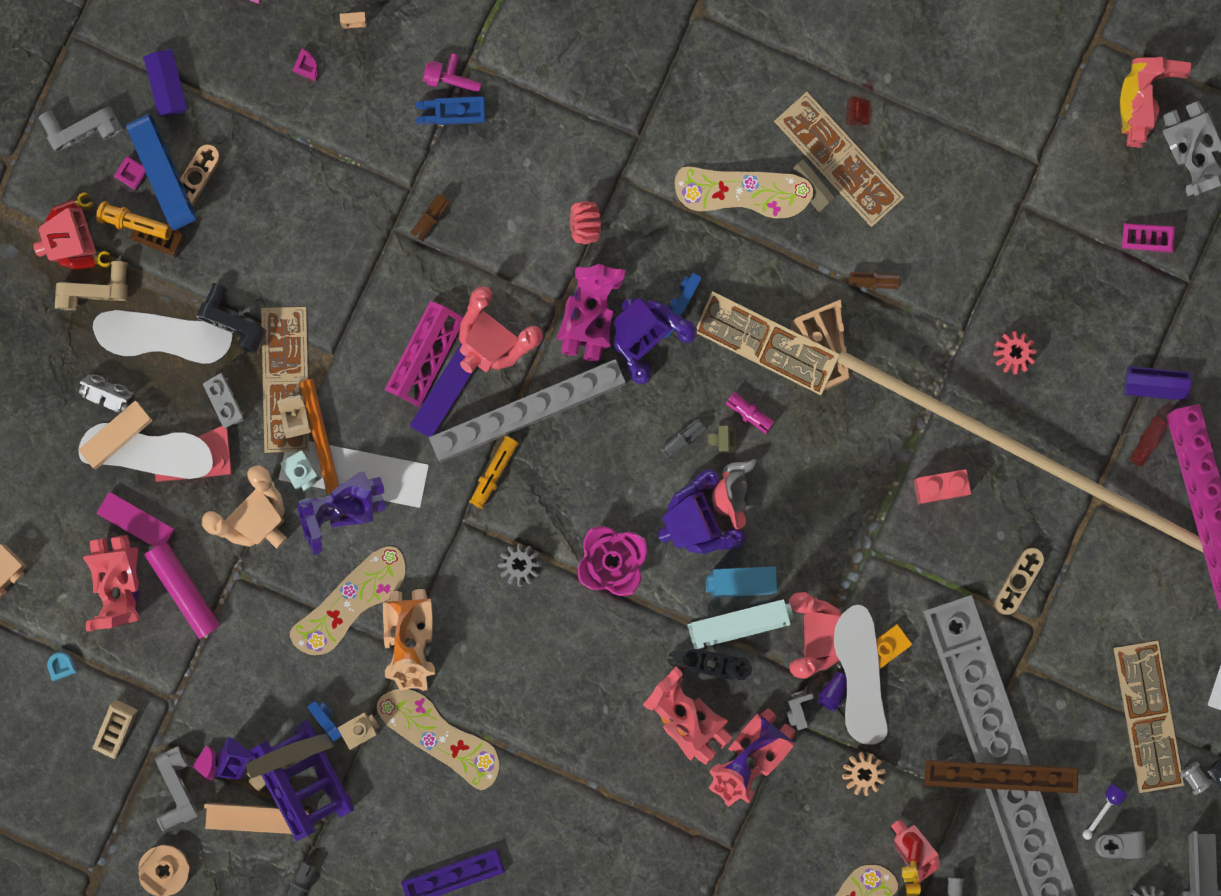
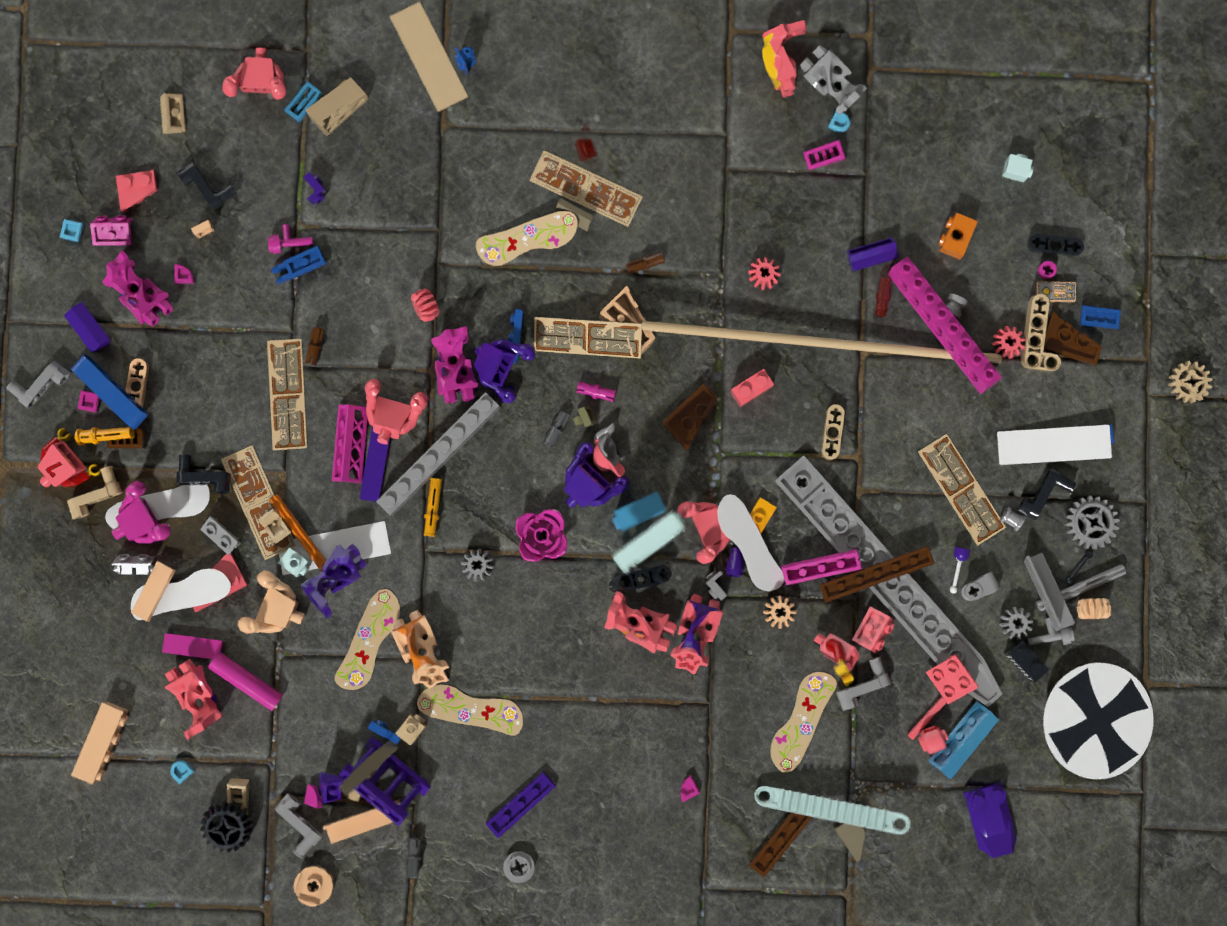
camera: 25 degrees left, 0 degrees up
(81, 772) = (220, 834): none -> black gear
(132, 340) = (137, 518): none -> dark pink torso
(241, 79) = (141, 304): none -> dark pink hips
(373, 262) = (287, 394): none -> sticker
(512, 20) = (315, 182): none -> dark purple bracket
(850, 489) = (689, 415): none -> reddish brown wing
(937, 740) = (821, 567): none -> dark pink brick
(969, 843) = (873, 630): none -> coral bracket
(1184, 205) = (839, 123): none -> medium azure tile

